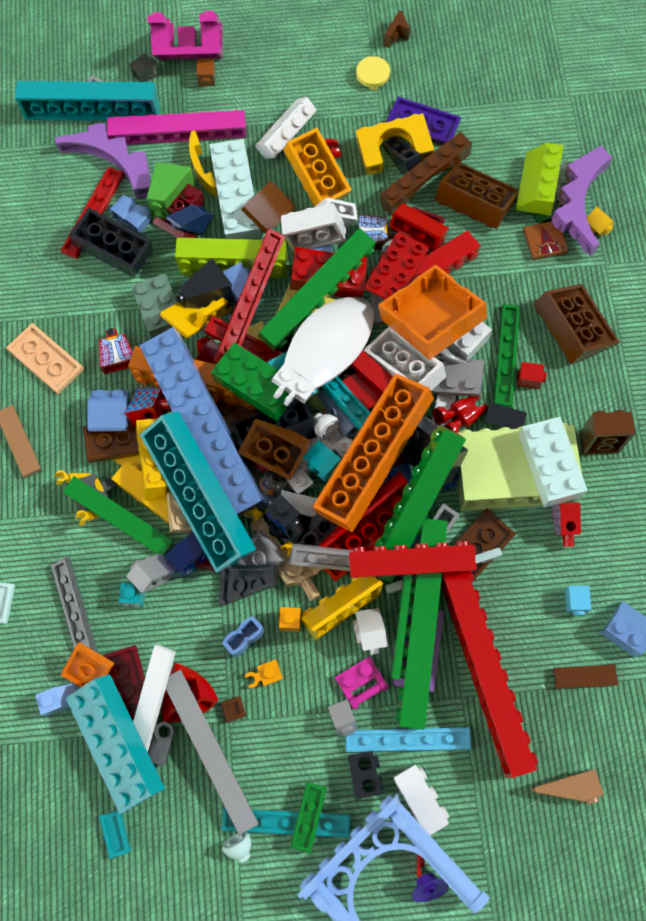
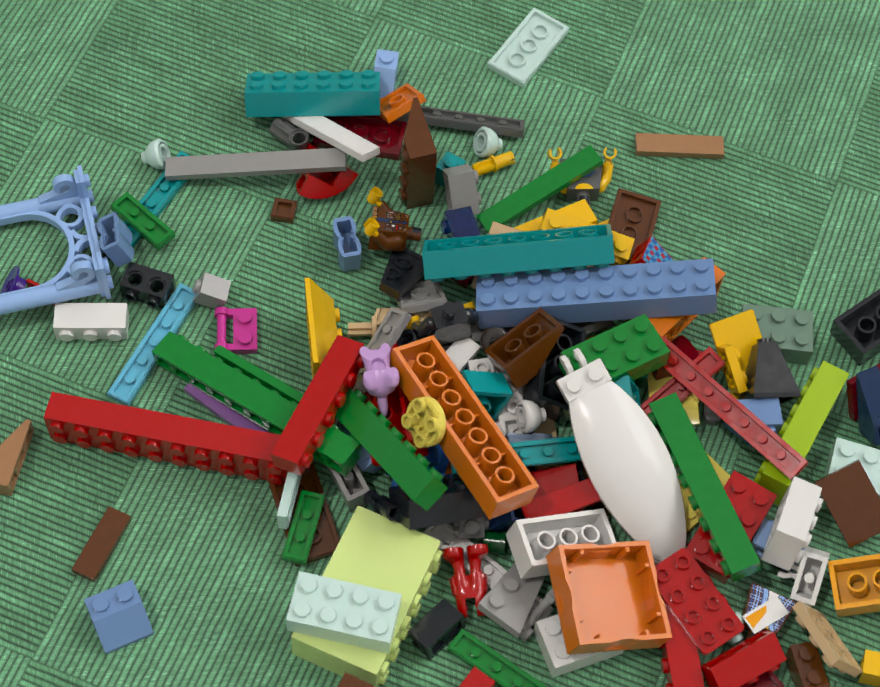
camera: 110 degrees right, 10 degrees down
(45, 358) = (767, 206): light nougat tile -> none
(89, 582) = (486, 142): none -> light aqua brick
(106, 568) = (494, 163): none -> yellow axle
(108, 410) = (668, 225): medium blue slope -> none
(114, 352) = (740, 270): torso -> none
(114, 834) = (232, 71): teal tile -> none
(142, 616) = (418, 161): none -> reddish brown slope
(211, 613) = (388, 228): none -> torso
(268, 674) = (299, 253): light orange plate -> none
(290, 619) = (341, 291): light orange brick -> none
(347, 820) = (115, 239): none -> medium blue brick
(367, 528) = (379, 376): none -> lavender animal
(370, 630) = (281, 355): white brick -> none
(376, 186) = (826, 638): none -> tan plate
(378, 228) = (765, 614): none -> white sticker
(390, 472) = (425, 421): none -> light yellow tile
(454, 485) = (386, 504): none -> black pin
(494, 538) = (303, 527): none -> green tile
(564, 514) = (269, 616): red torso -> none
(578, 600) = (183, 580): medium azure brick -> none

